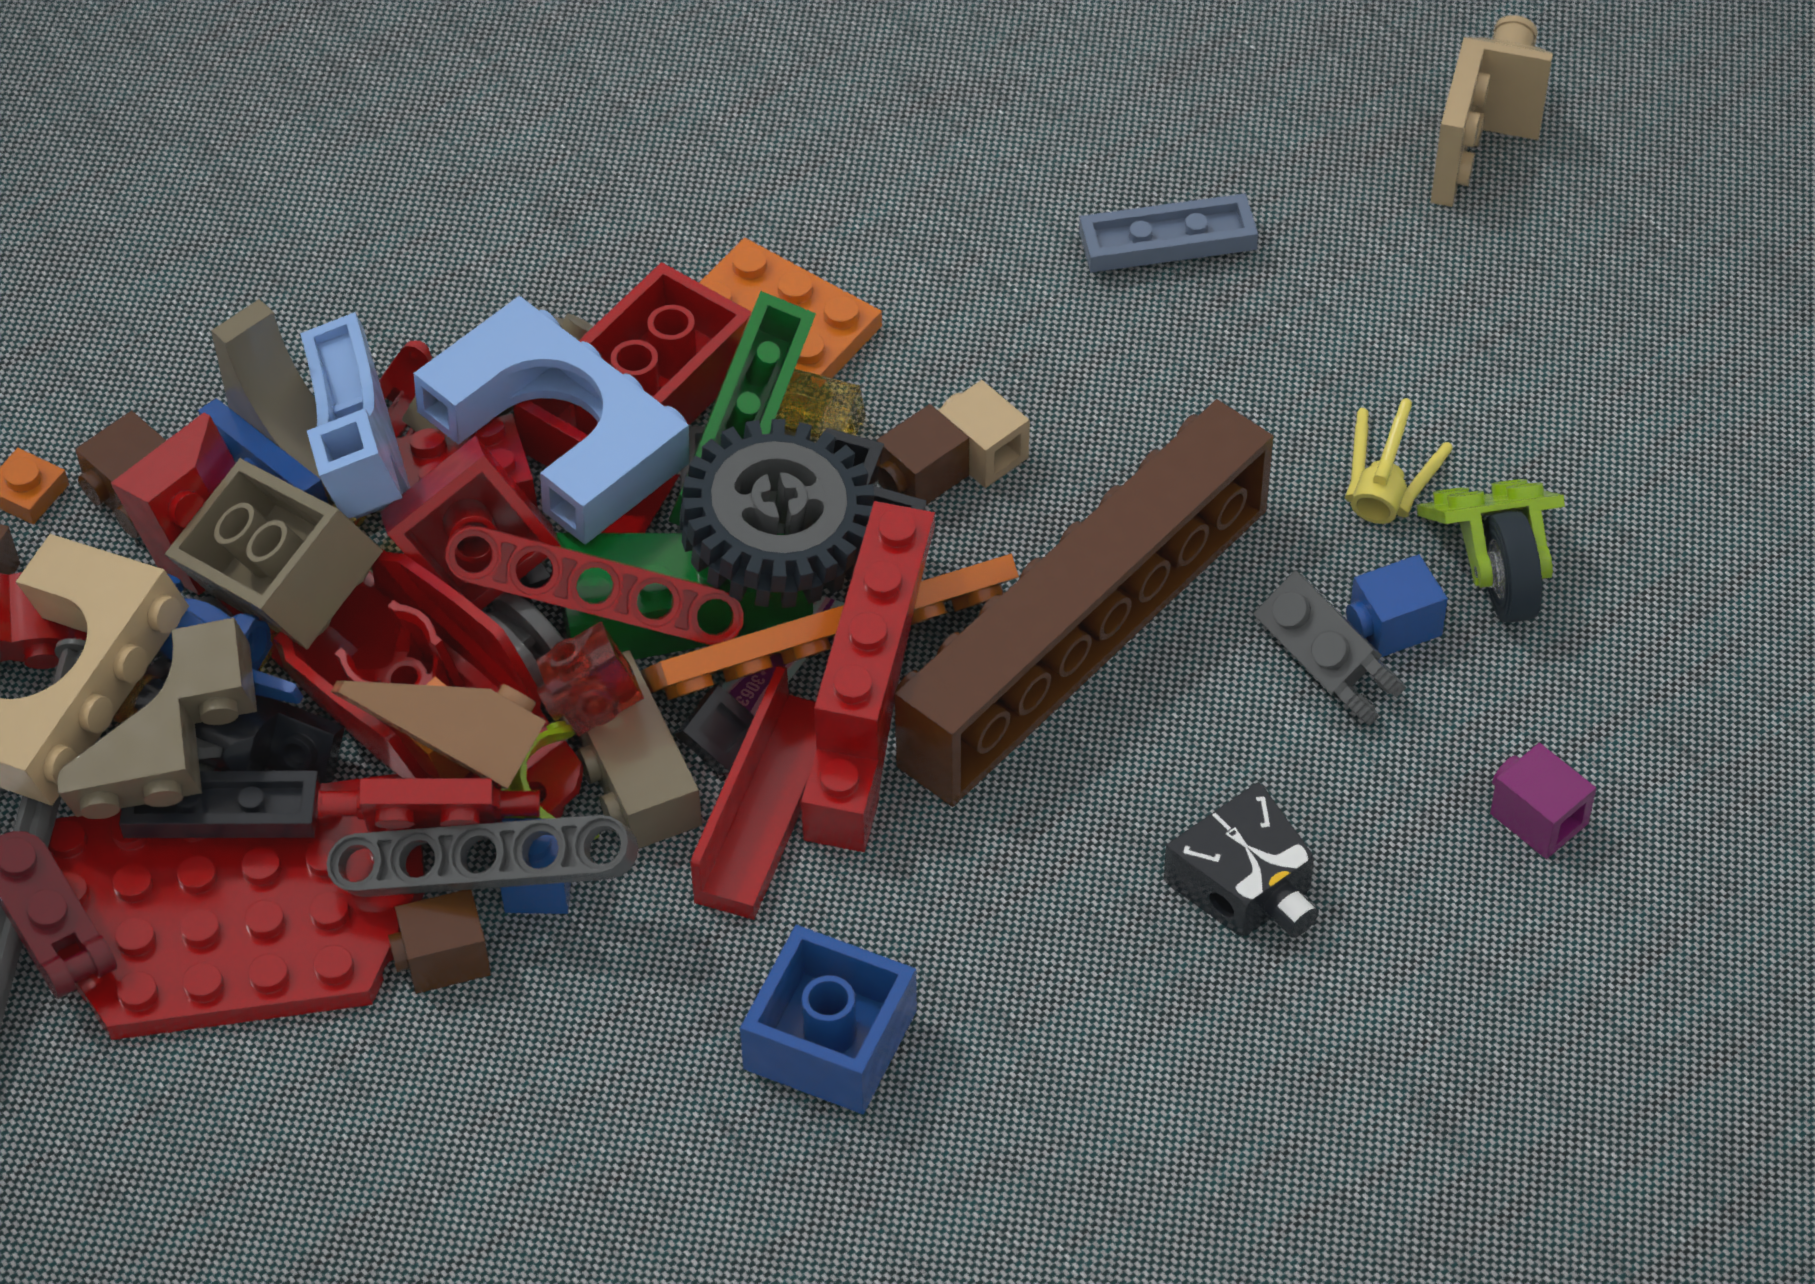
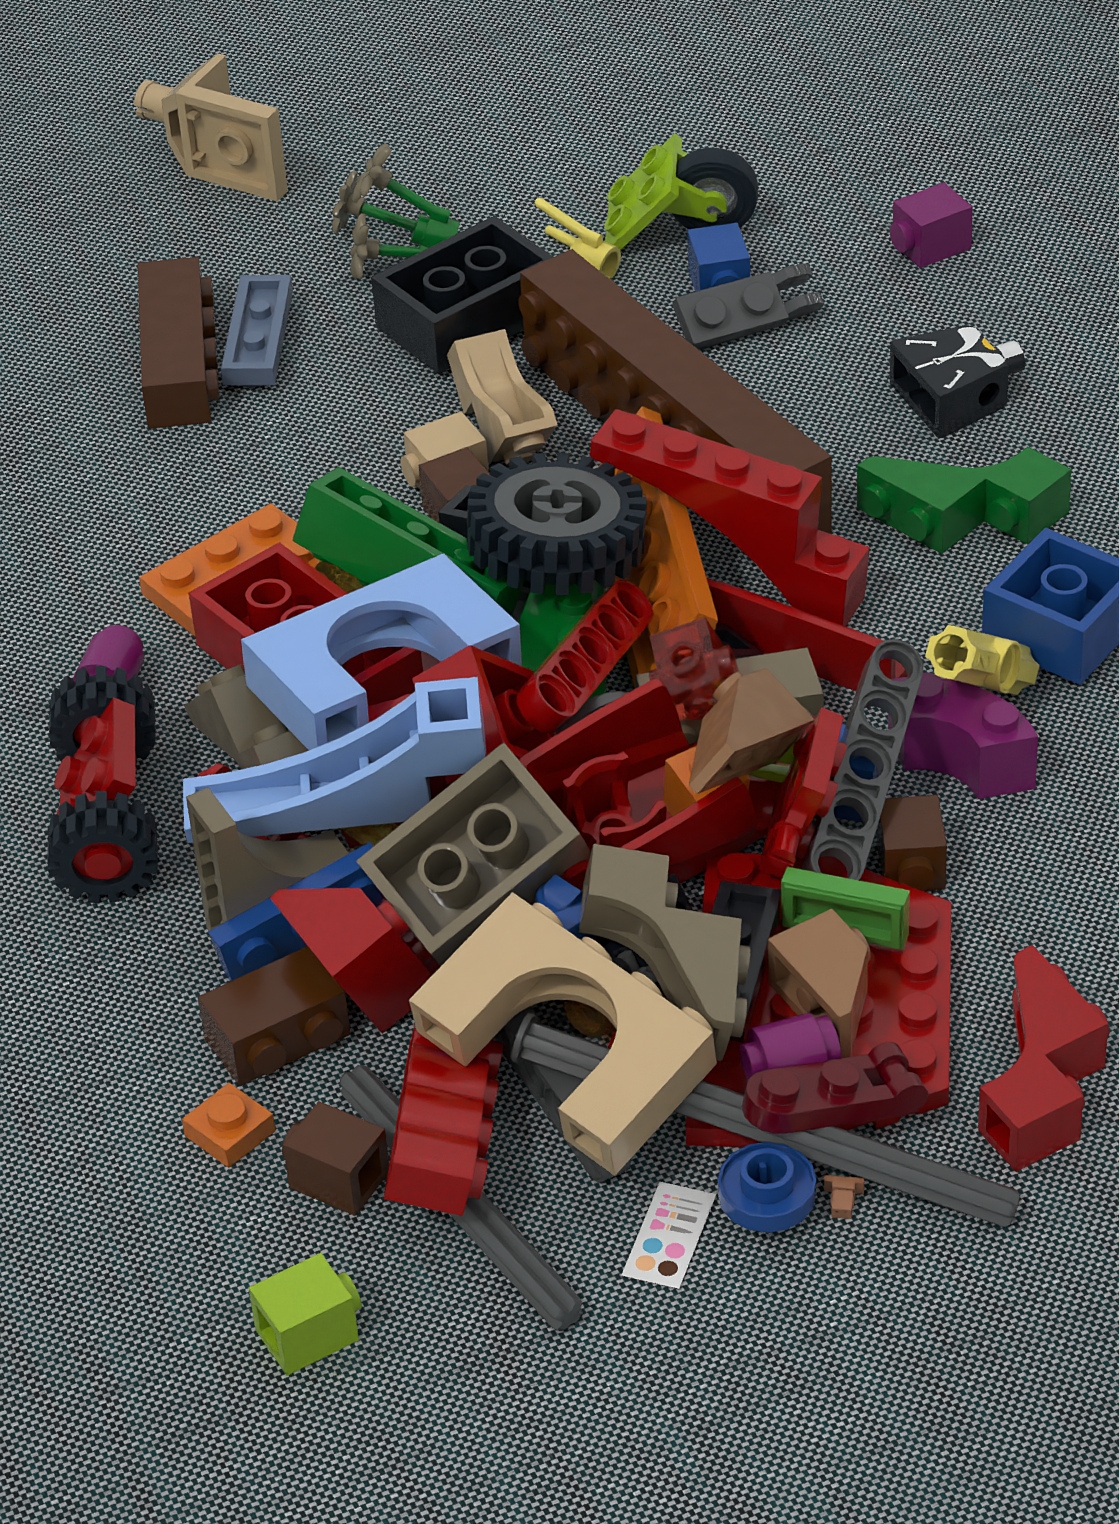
camera: 75 degrees left, 10 degrees down
(96, 869) = (789, 1043): none -> magenta brick
(172, 1102) = (1060, 1040): none -> red arch
(191, 884) = (822, 971): none -> medium nougat slope
(295, 883) = (872, 908): none -> bright green tile
(490, 249) = (95, 836): none -> black plate
(600, 247) = (114, 648): none -> magenta brick
(613, 963) = (970, 737): none -> magenta brick
(677, 940) = (982, 660): none -> light yellow piece
(998, 886) = (947, 502): none -> green arch
(1047, 463) = (506, 408): none -> tan arch
(1121, 168) = (177, 342): none -> reddish brown brick
(1260, 371) = (455, 291): none -> black brick
(1378, 335) = (426, 230): none -> plant

